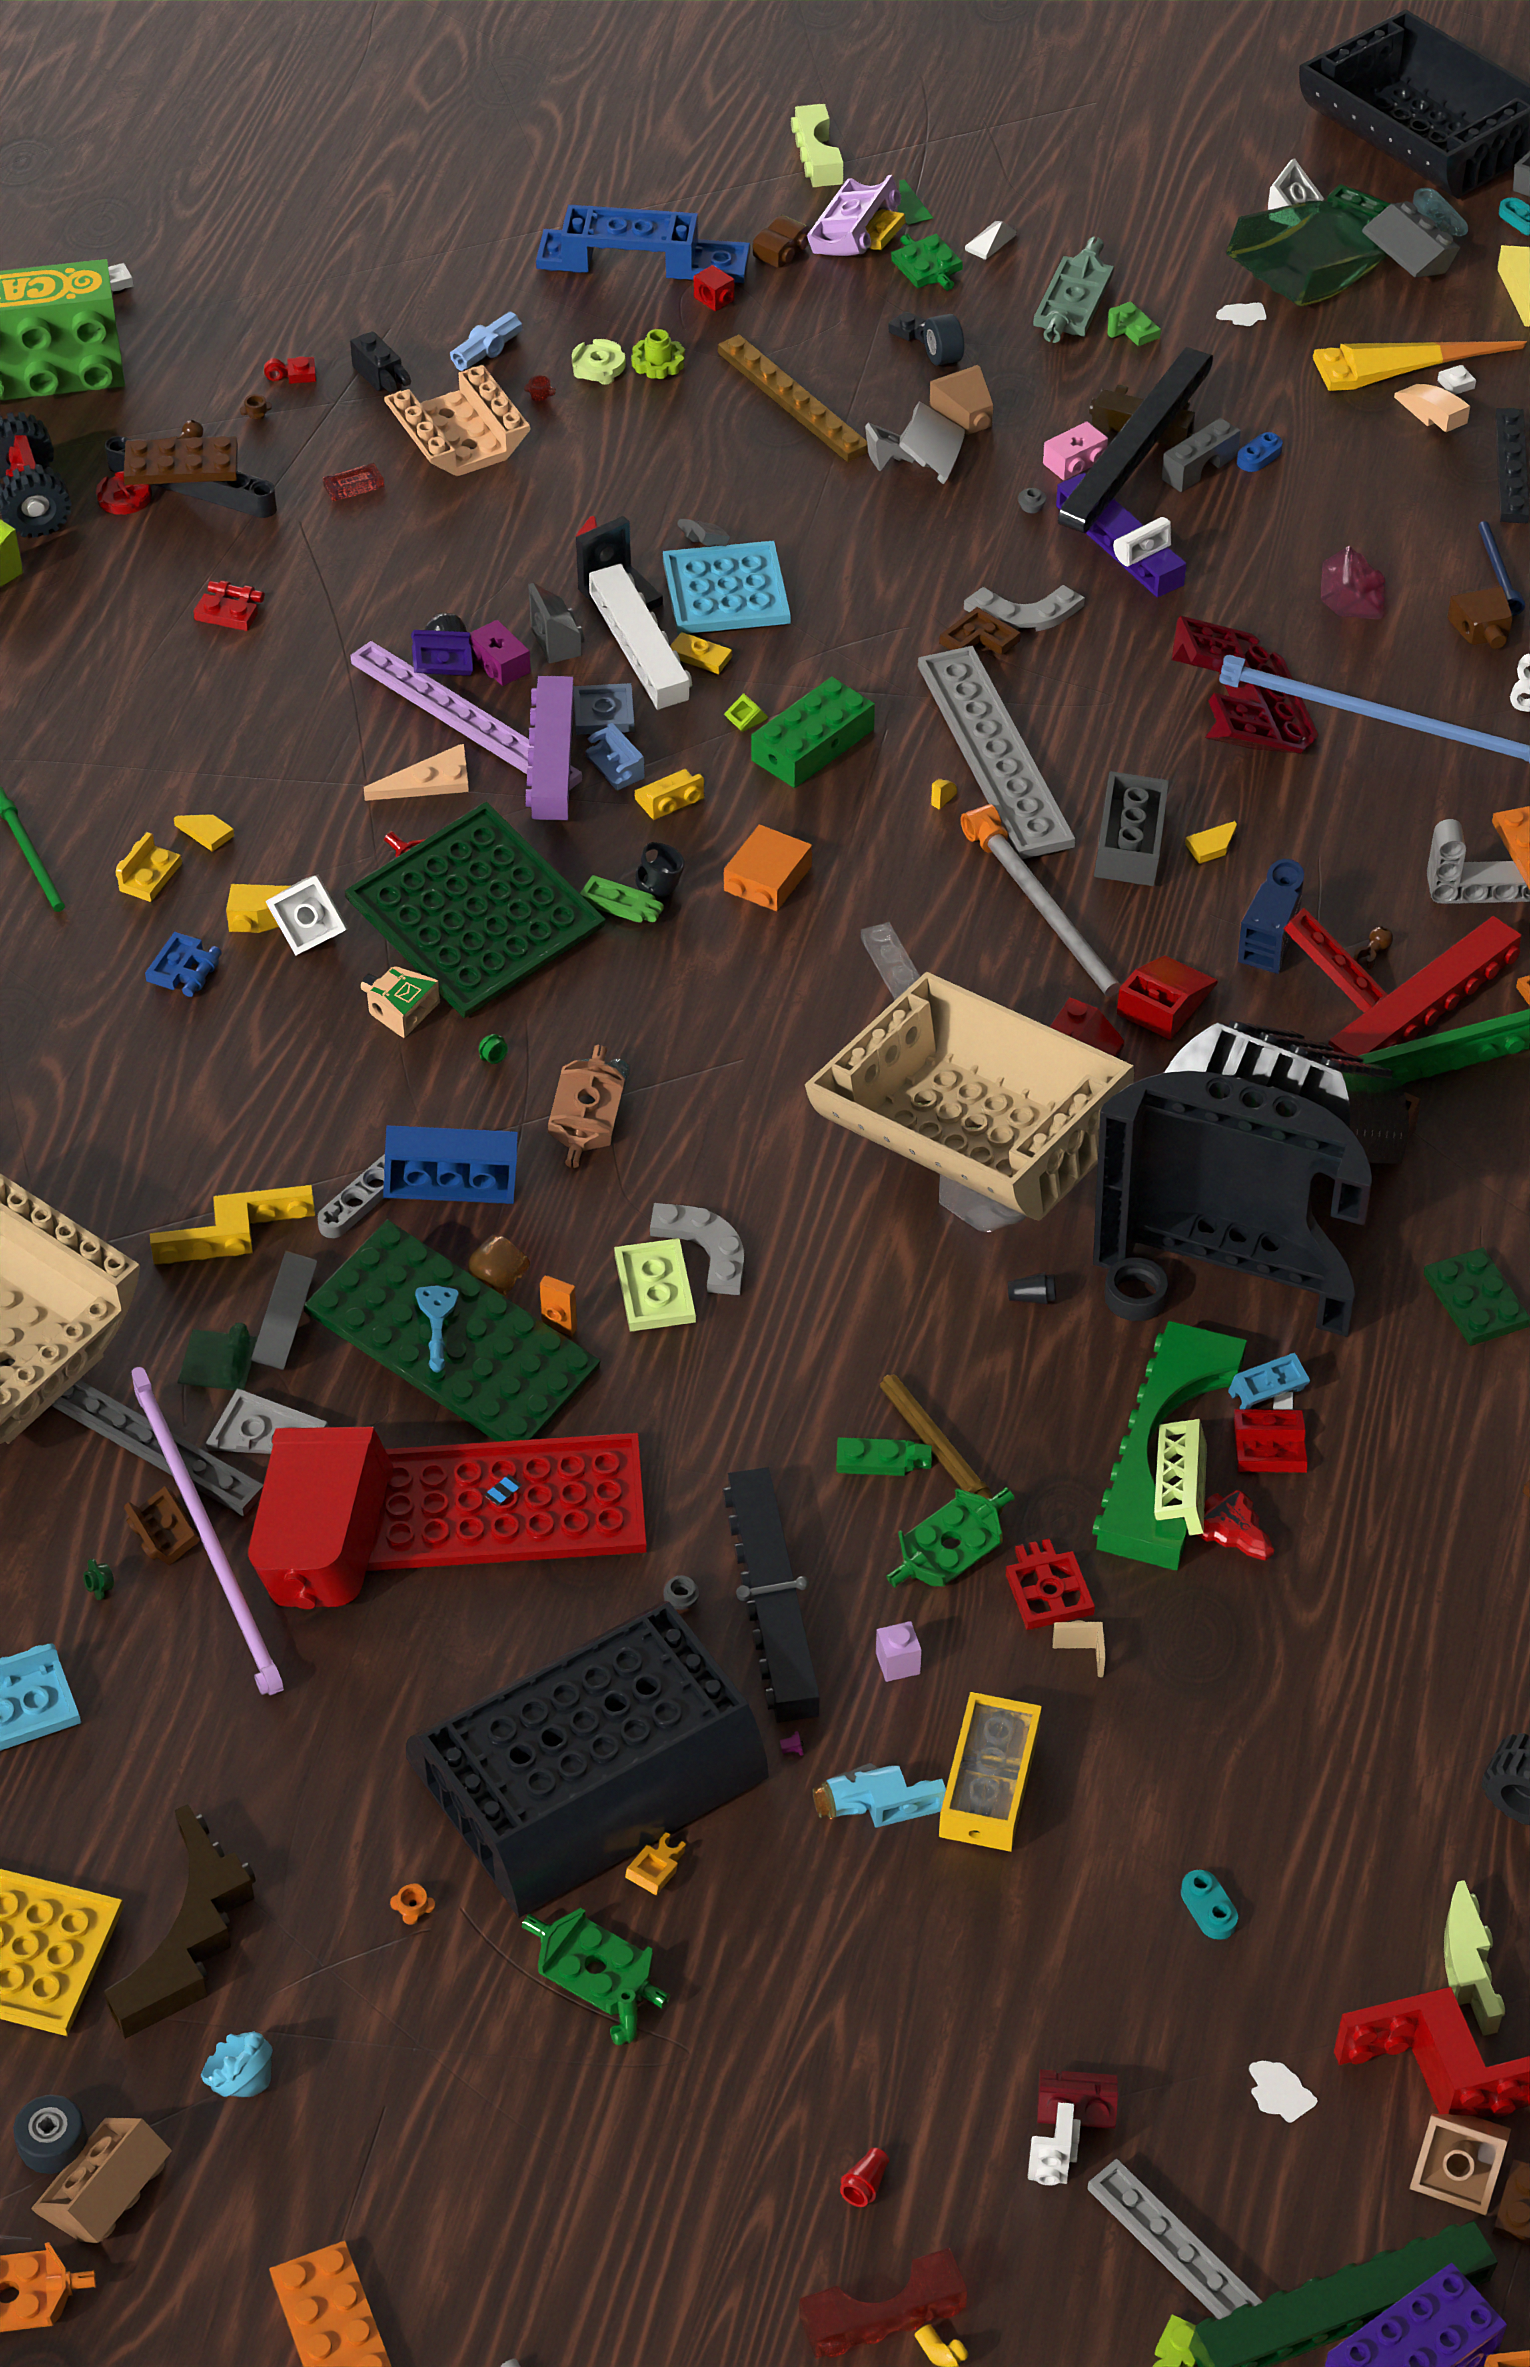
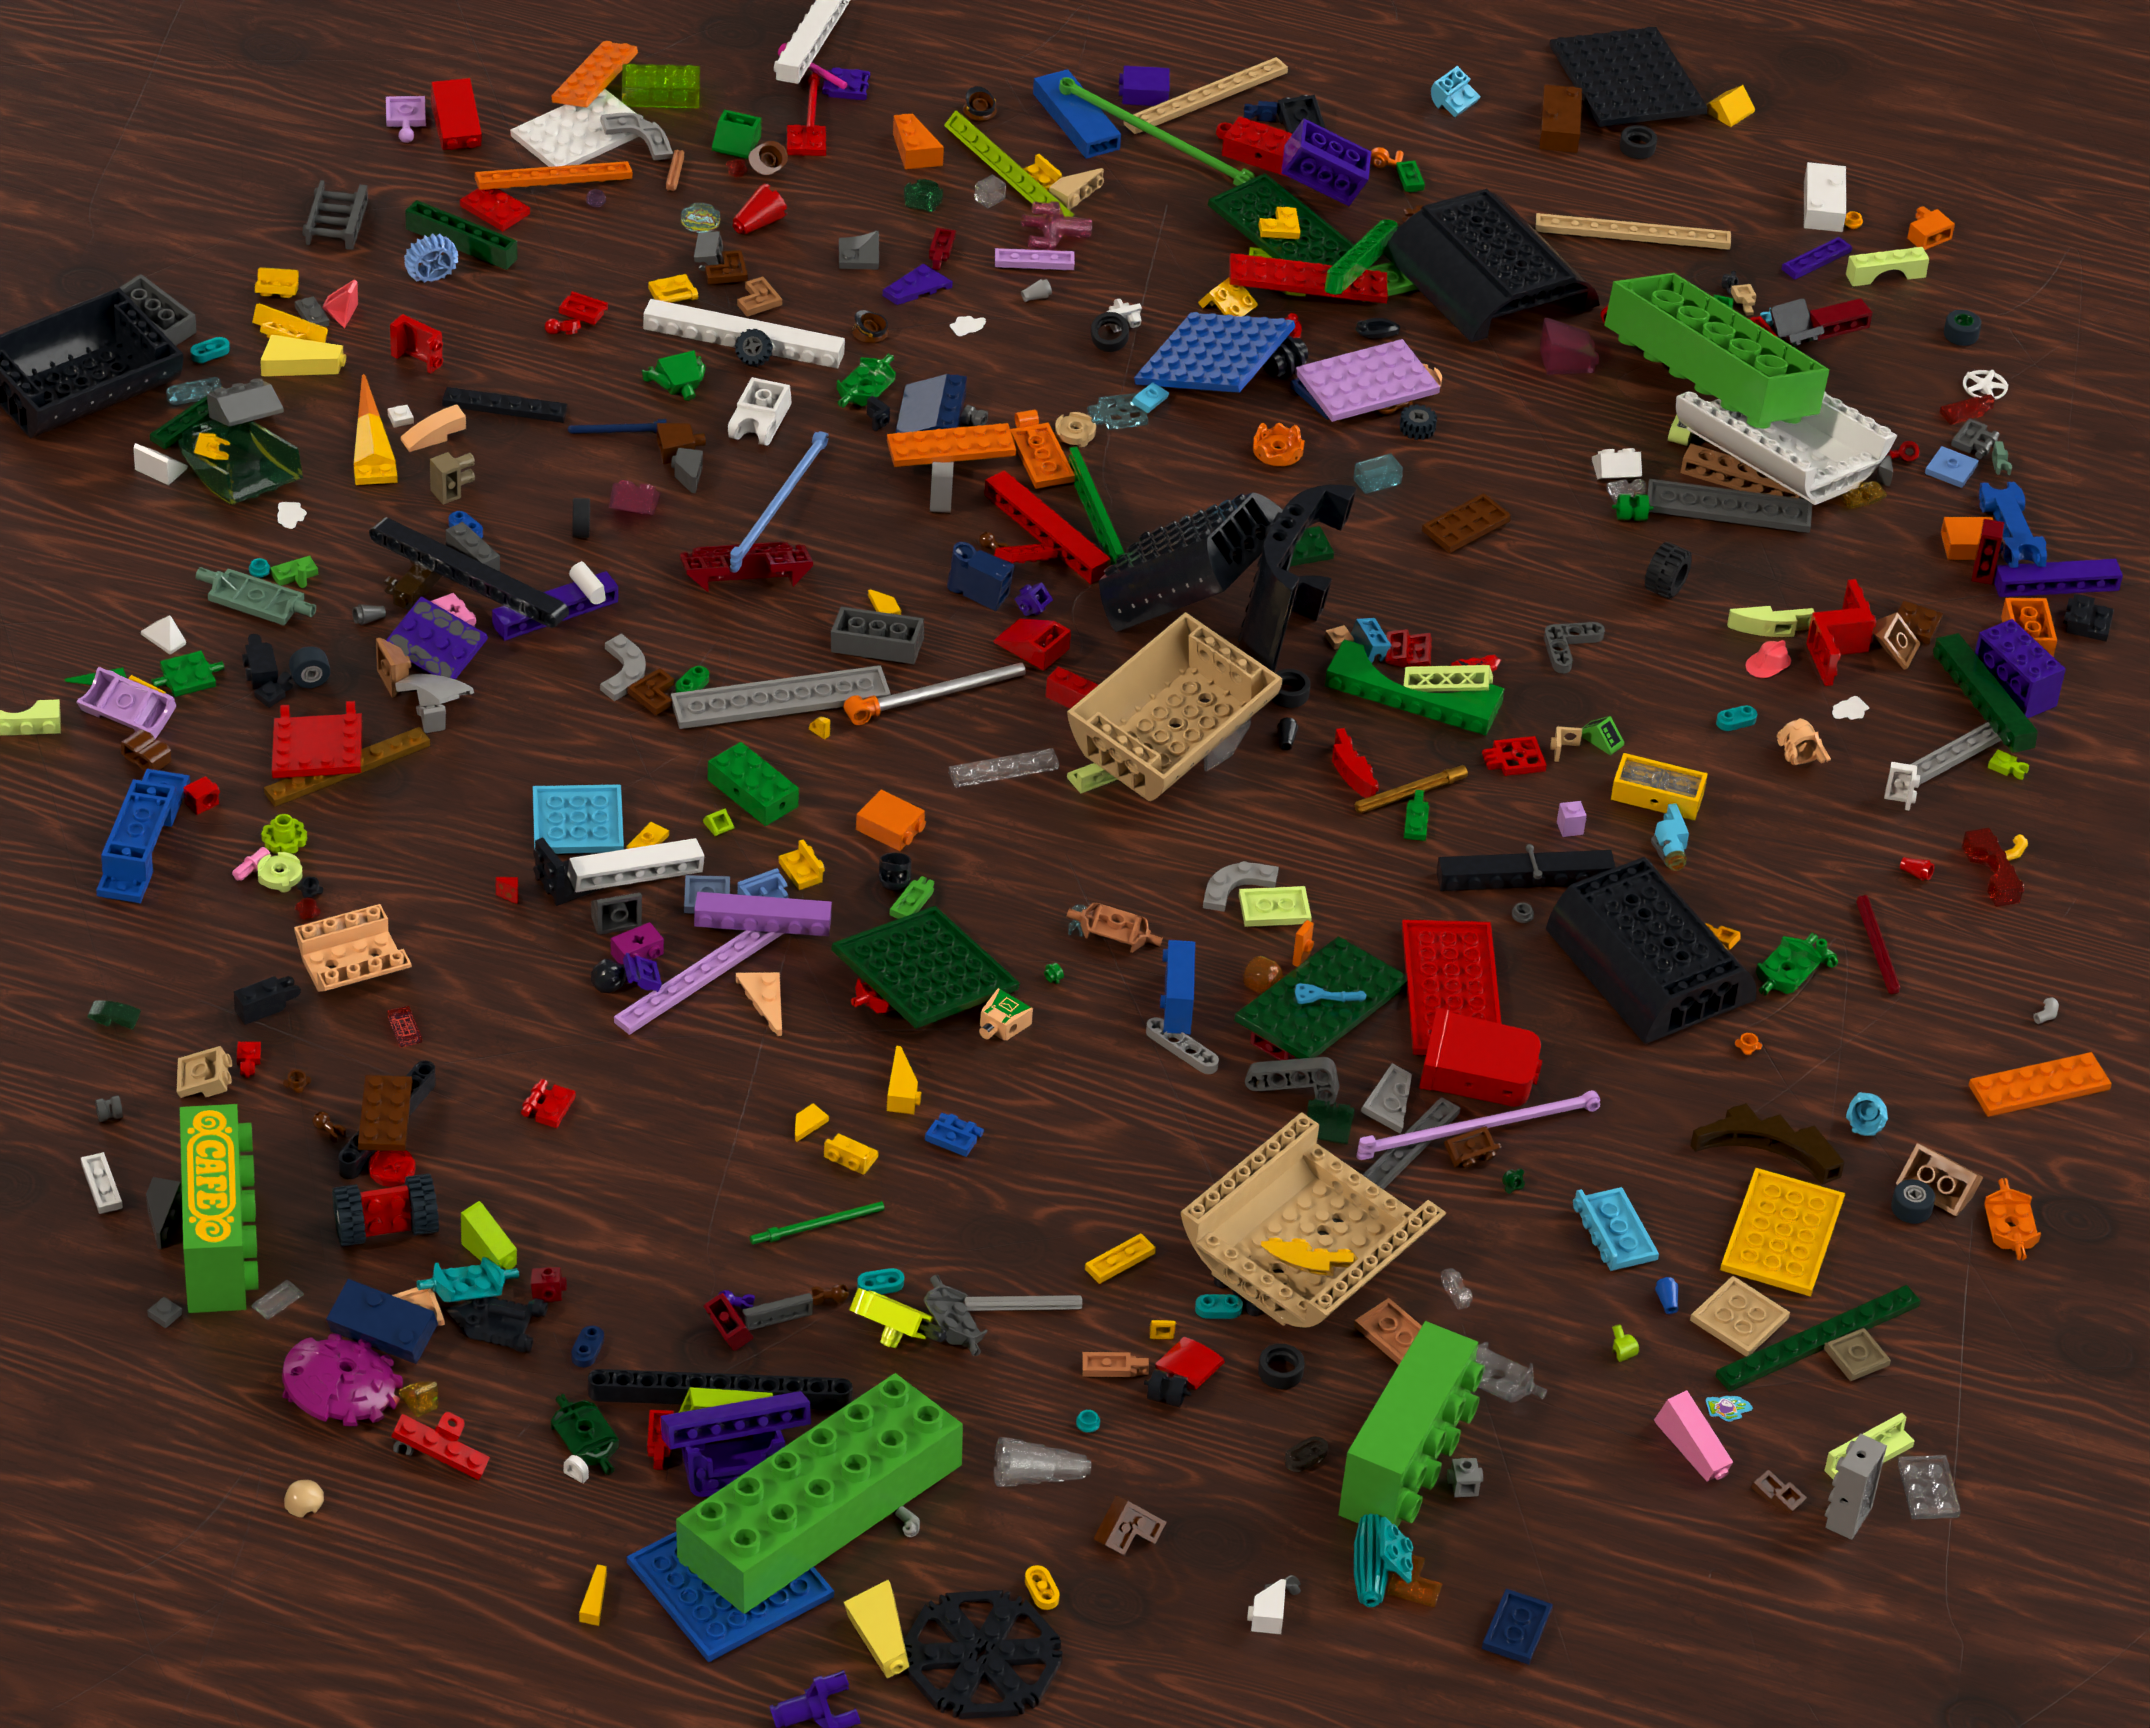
camera: 90 degrees left, 5 degrees down
(201, 275) = (103, 1108): none -> dark grey wheel
(232, 1228) = (1214, 1109): yellow bracket -> none
(257, 336) = (204, 1073): none -> tan plate
(306, 914) = (925, 1050): white slope -> none
(350, 265) = (108, 1011): none -> clear green slope
(486, 341) = (241, 935): light blue piece -> none
(503, 1489) = (1448, 983): sticker -> none
(576, 386) = (310, 887): none -> black plate
(594, 332) = (250, 864): none -> bright pink axle
(669, 2108) = (1878, 944): none -> dark red axle
(703, 532) = (510, 826): dark grey slope -> none
(817, 362) = (317, 744): none -> red plate
(960, 301) = (260, 662): none -> black hinge
(964, 1369) = (1353, 769): none -> red slope
(965, 1518) = (1480, 776): green plate -> none
(1011, 671) = (694, 679): none -> green plate
(1018, 435) = (437, 639): none -> dark purple plate
(1032, 500) = (501, 649): dark grey plate -> none
(1065, 383) = (367, 613): none -> dark grey cone
(1091, 2093) = (1869, 777): dark red brick -> none
(1117, 1702) = (1603, 735): none -> bright green slope
(1128, 292) = (259, 568): none -> teal plate
(1142, 1991) = (1801, 743): none -> light nougat helmet
(1241, 984) = (1033, 599): none -> dark purple brick
(1274, 1348) = (1336, 636): none -> light nougat plate
(1284, 519) = (581, 518): none -> black tyre
(1316, 220) = (208, 446): none -> yellow hinge
(1327, 415) = (447, 476): none -> dark tan brick
(1351, 1649) = (1593, 633): none -> dark grey beam
(1372, 1960) = (1769, 660): none -> coral piece
(1430, 632) = (688, 467): none -> dark grey slope

